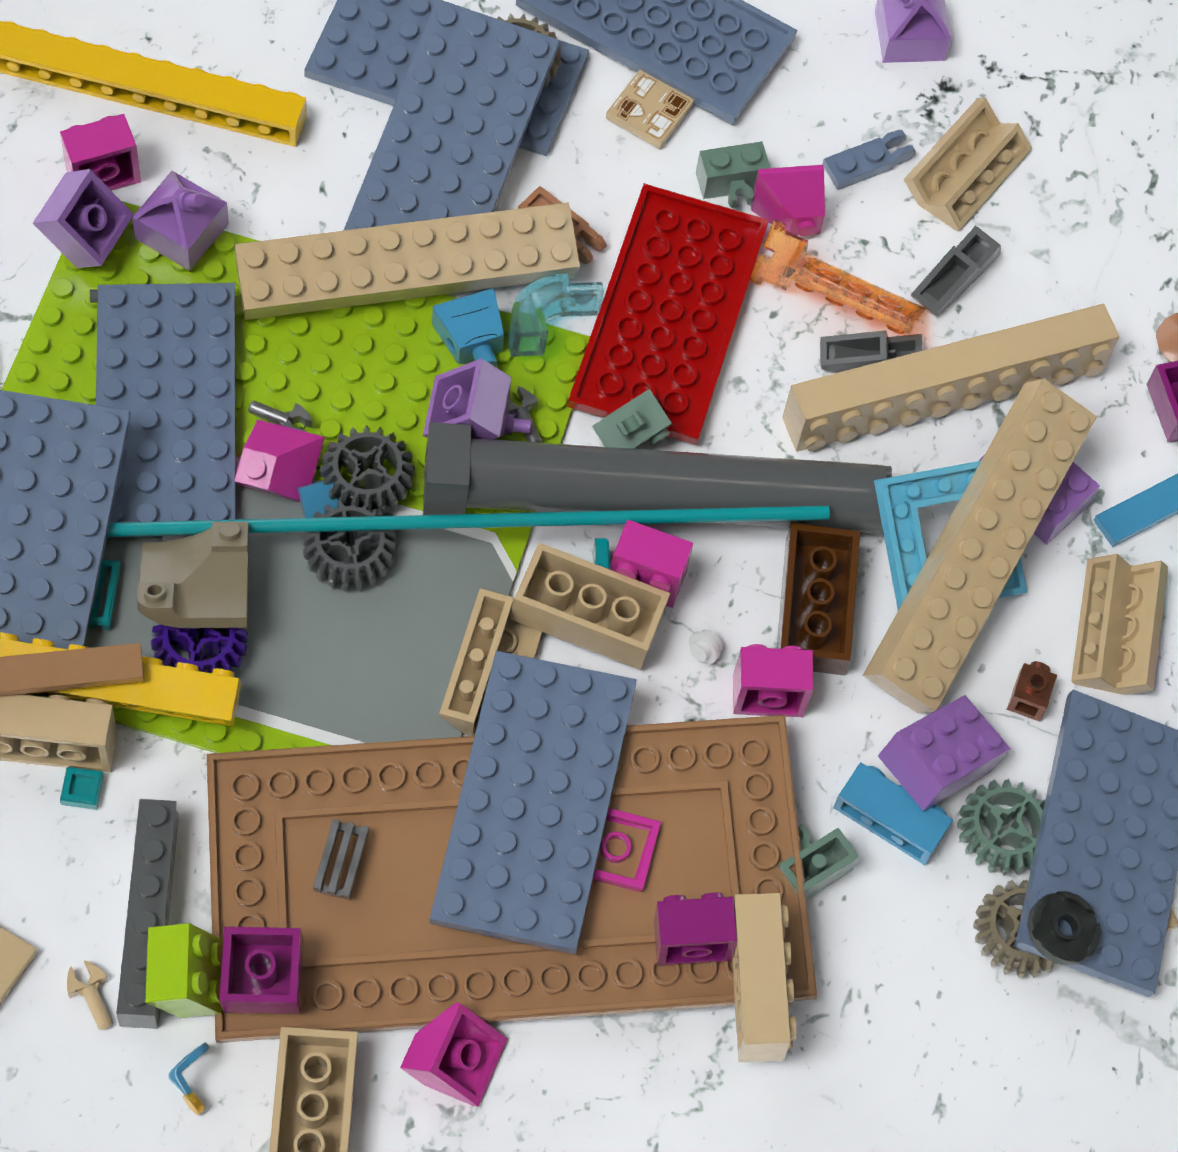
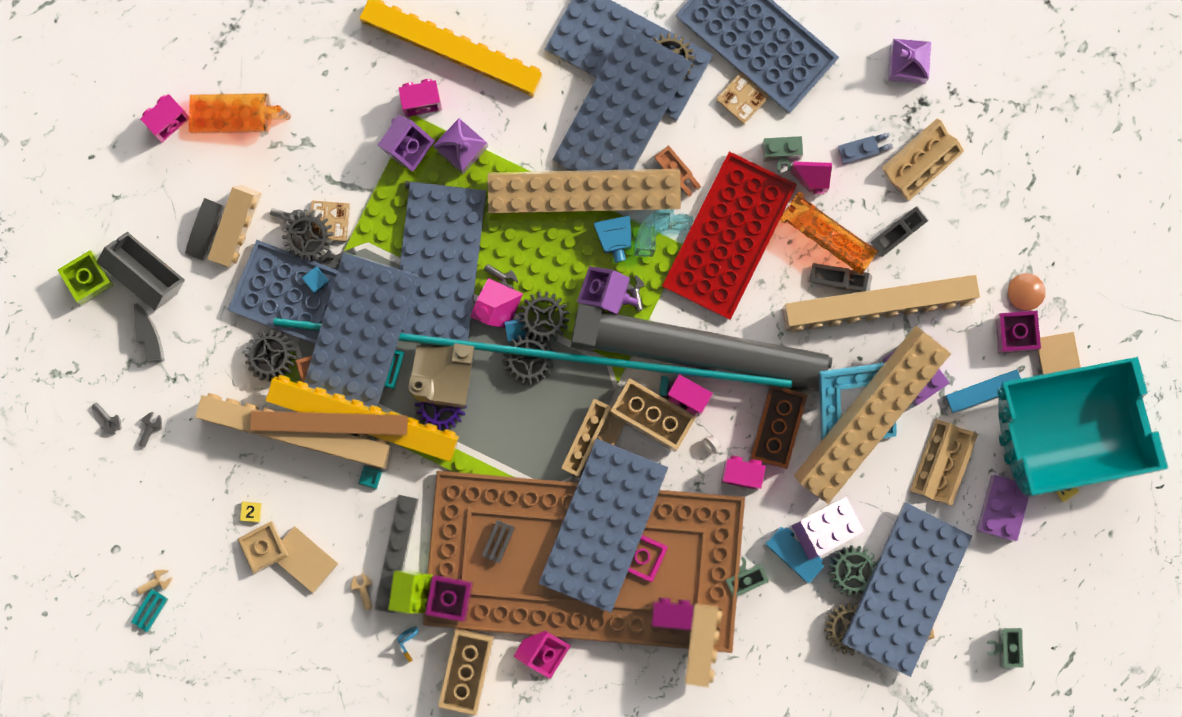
camera: 15 degrees right, 20 degrees up
(634, 423) = (694, 309): sand green brick -> none
(1032, 700) = (883, 501): copper brick -> none
(1051, 941) = (856, 640): pearl dark grey tile -> none

